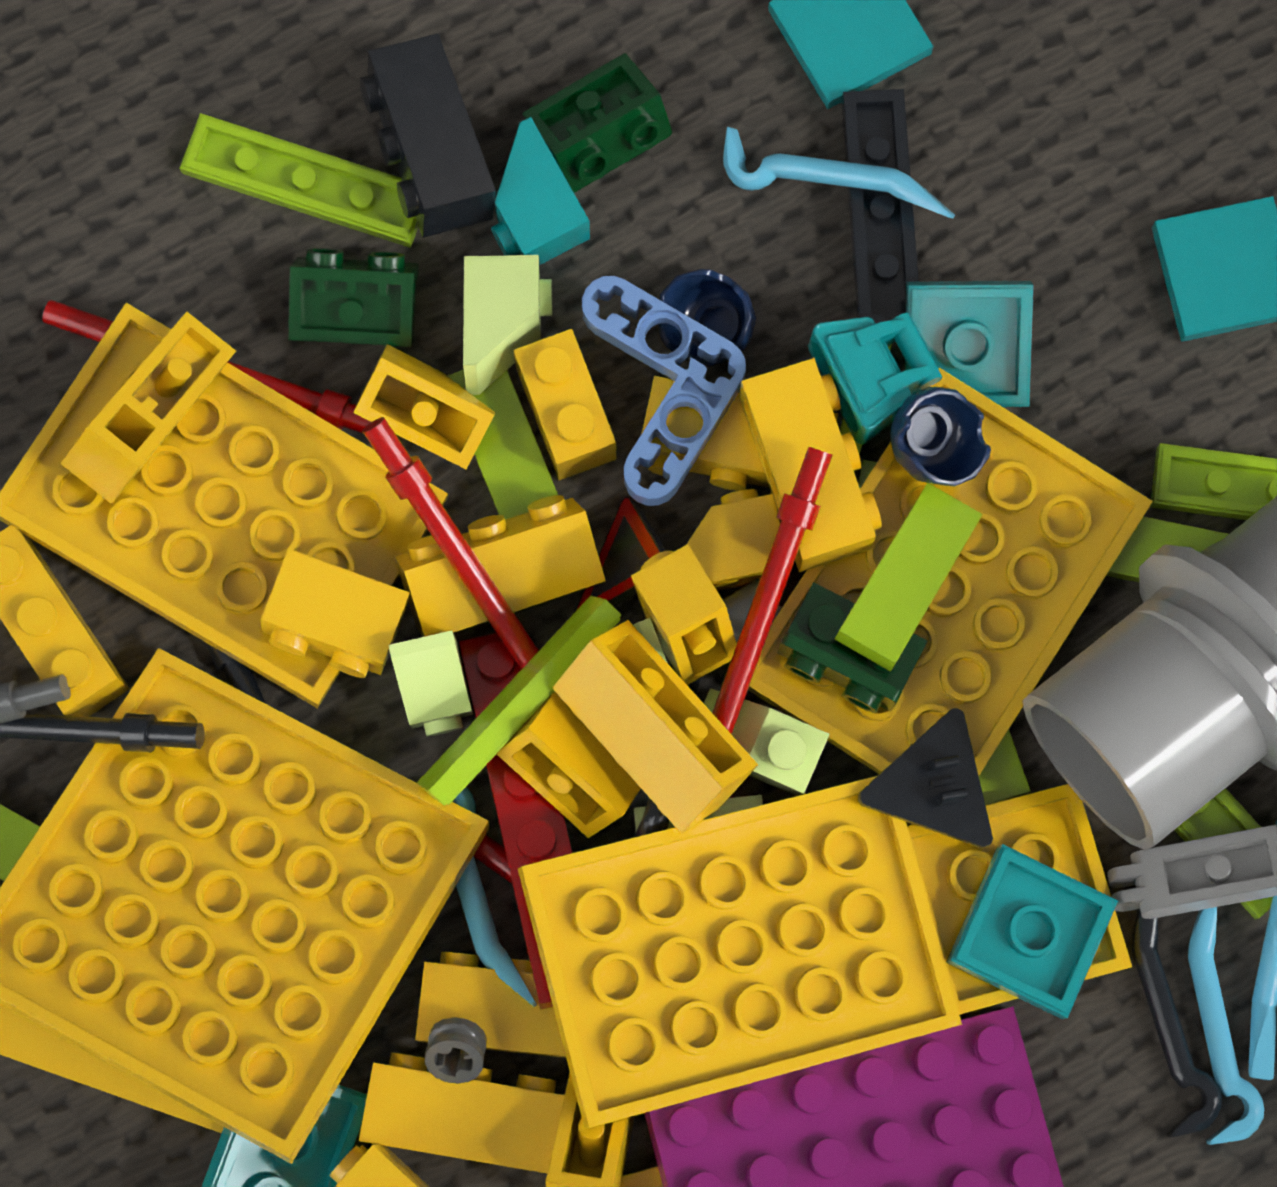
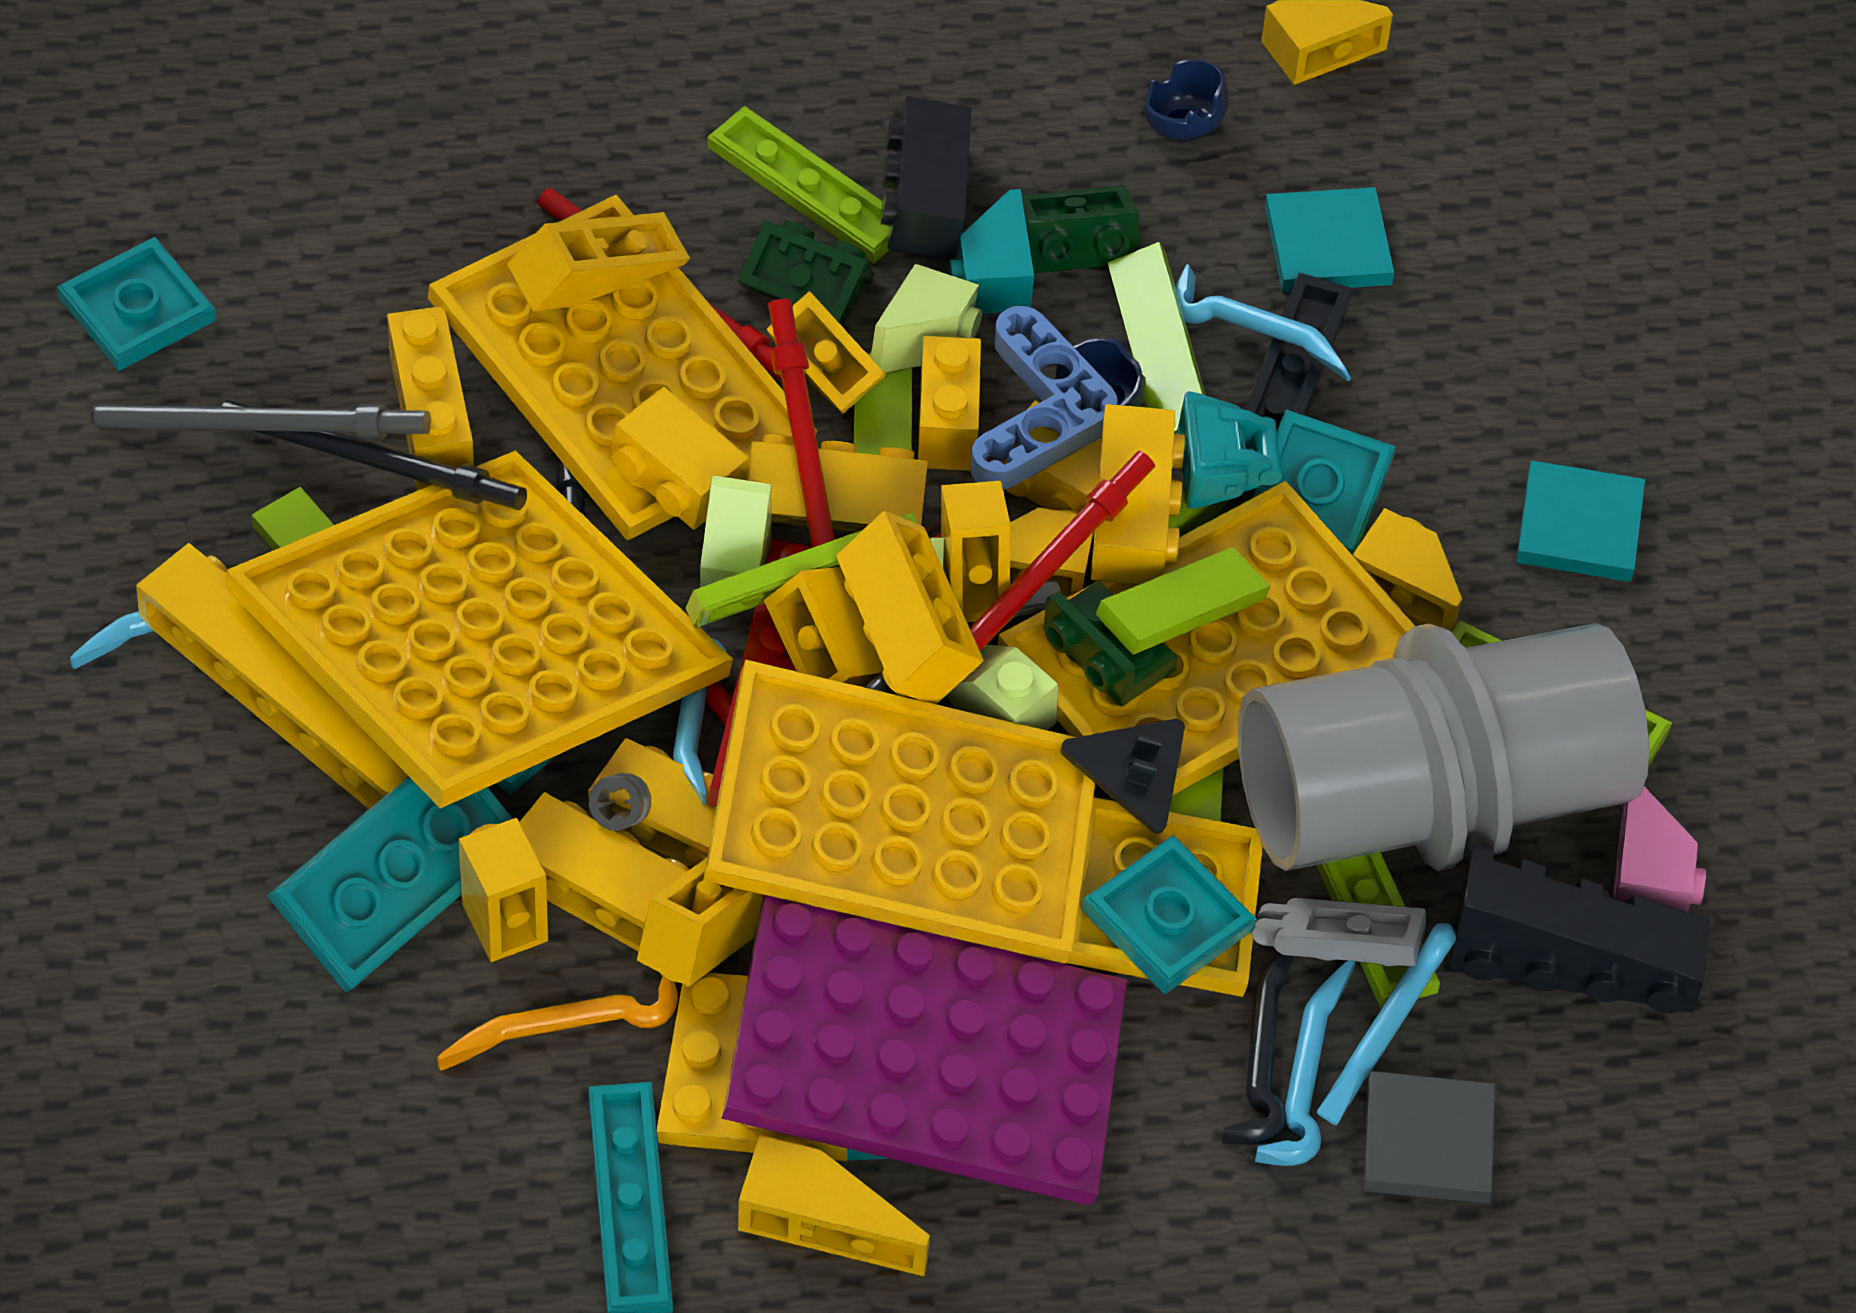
camera: 20 degrees right, 25 degrees down
(740, 234) = (1156, 327): none -> tile
(939, 437) = (1257, 510): dark blue hair -> none
(1093, 410) = (1411, 569): none -> yellow slope

